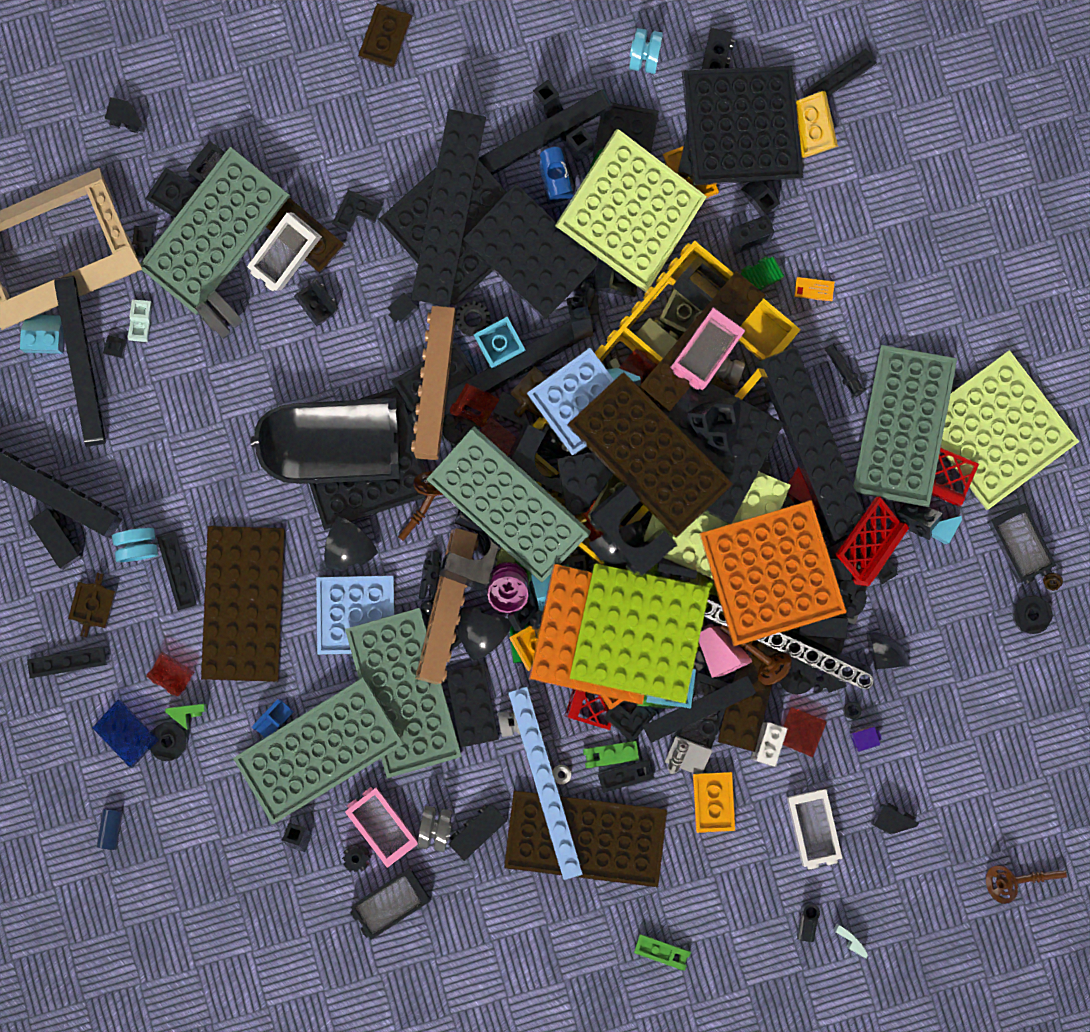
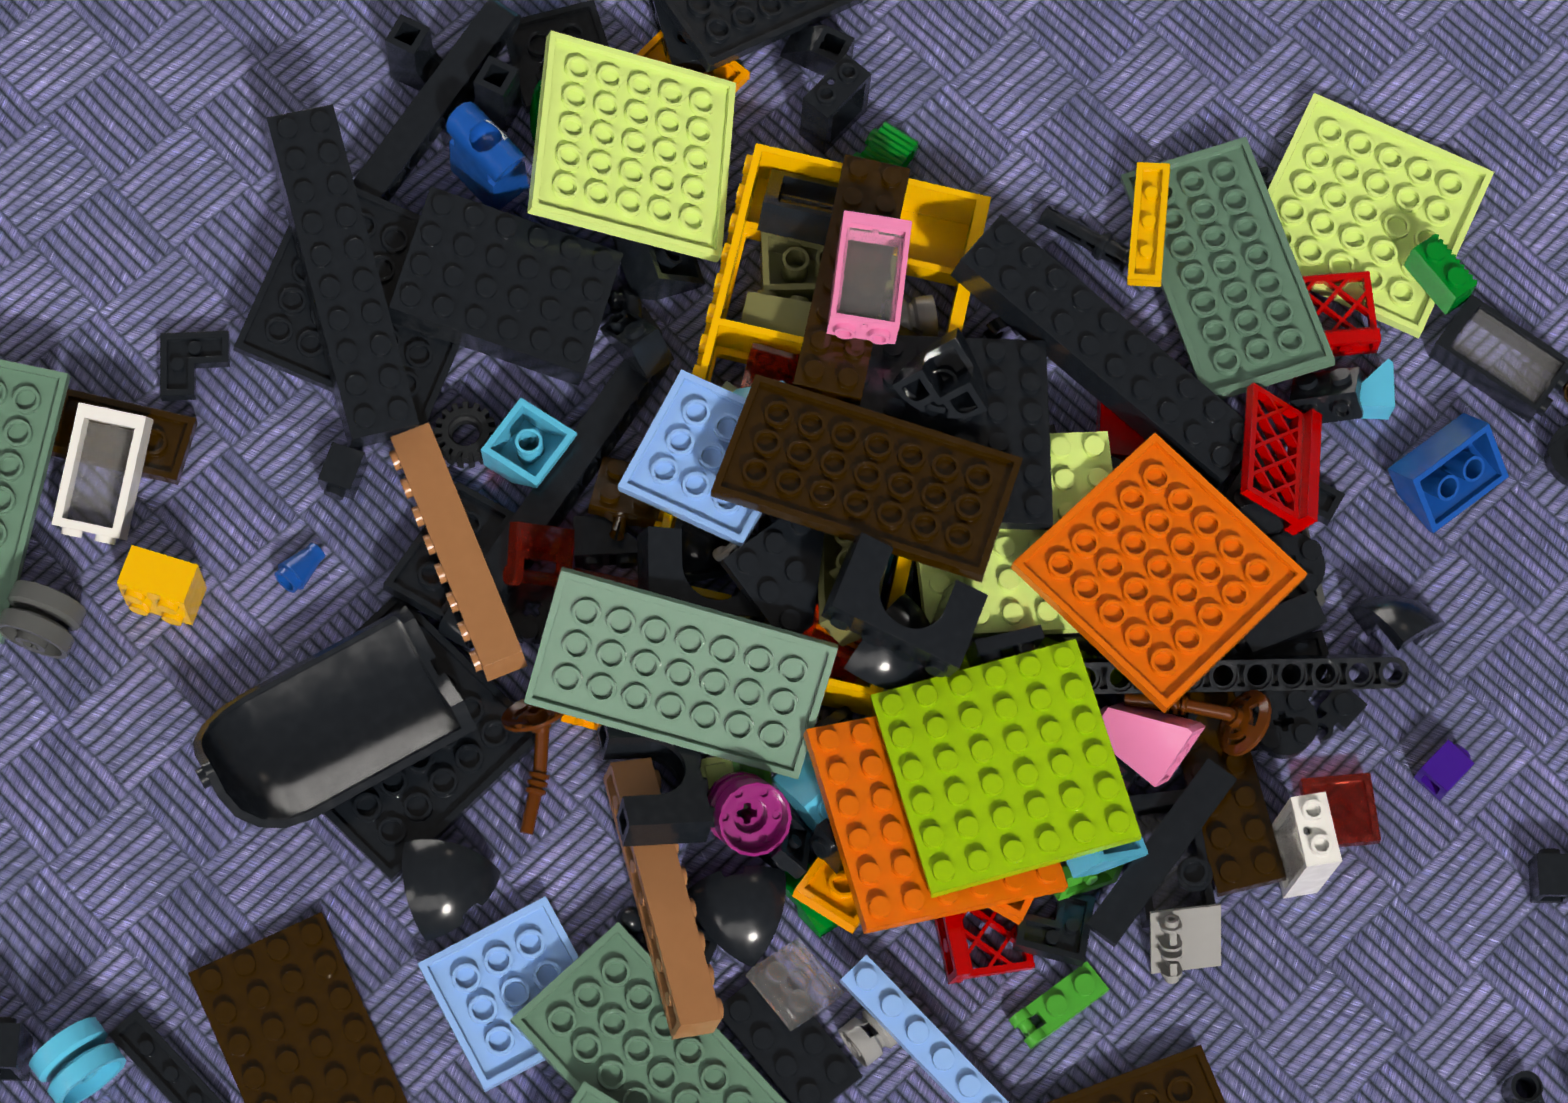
camera: 35 degrees left, 15 degrees down
(287, 328) = (161, 586): none -> yellow brick
(317, 302) = (196, 527): black bracket -> none
(357, 348) = (299, 568): none -> blue cone
(385, 36) = (105, 85): dark brown plate -> none
(430, 575) = (607, 866): black hinge -> none
(488, 679) = (794, 984): none -> clear plate
(567, 774) = (1004, 1072): white plate -> none
(625, 776) = (1101, 1028): black plate -> none
(713, 802) = (1267, 994): light orange plate -> none
(814, 289) = (973, 145): light orange tile -> none
(814, 828) = (1449, 952): window -> none
(846, 712) = (1390, 745): black bush -> none
(877, 381) = (1148, 224): none -> yellow plate
(959, 589) = (1449, 471): none -> blue slope
(1014, 485) = (1440, 274): none -> green brick

